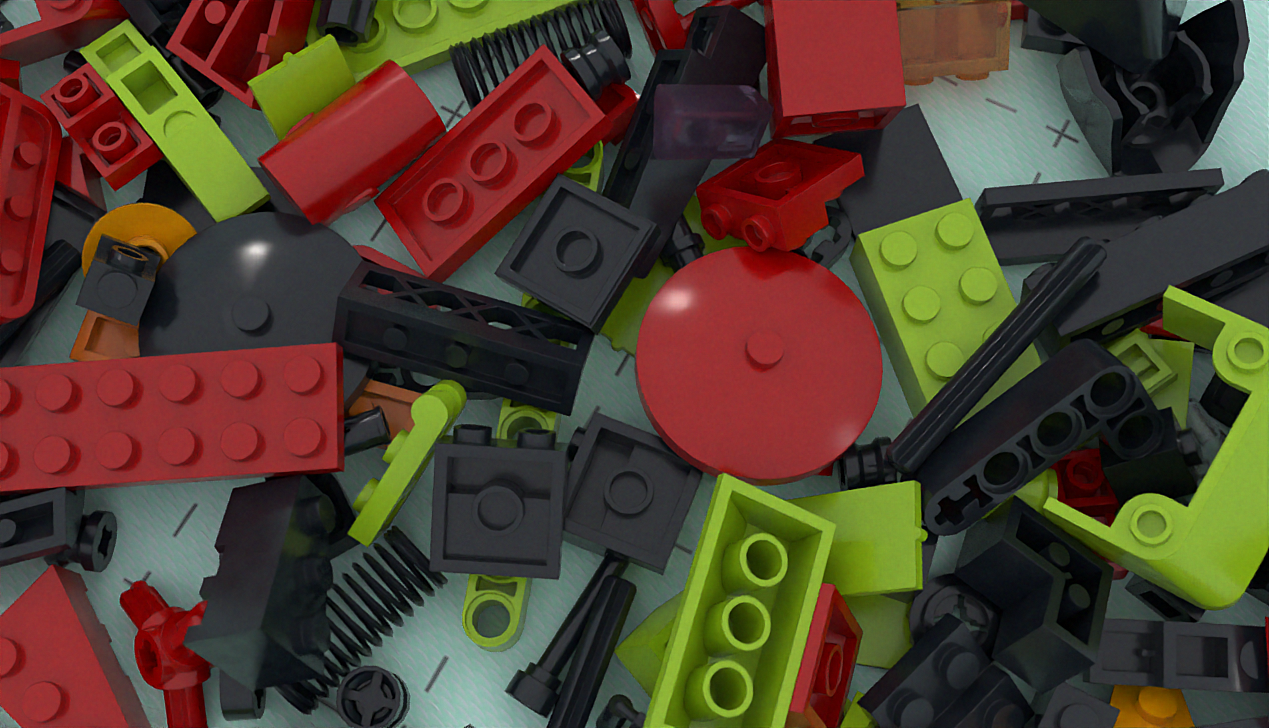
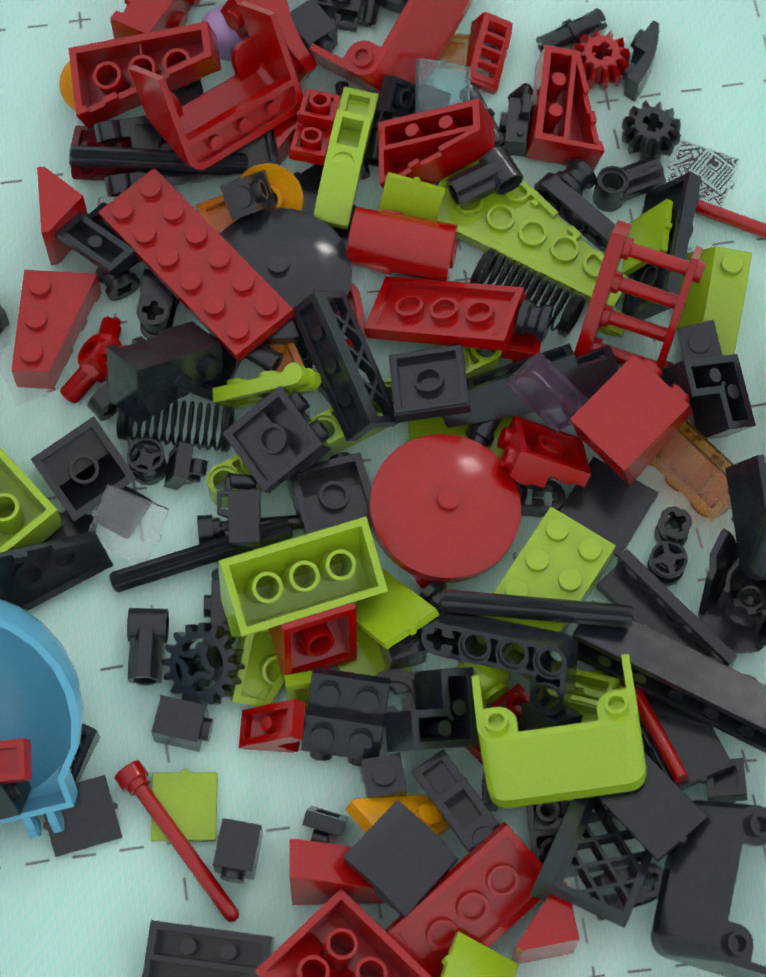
camera: 50 degrees right, 5 degrees down
(157, 514) = (155, 306): none -> black piece
(420, 658) = (183, 467): none -> black tile
(560, 627) = (242, 510): none -> black piece
(988, 106) = (677, 518): none -> black bush
(1025, 149) = (667, 554): none -> black wheel

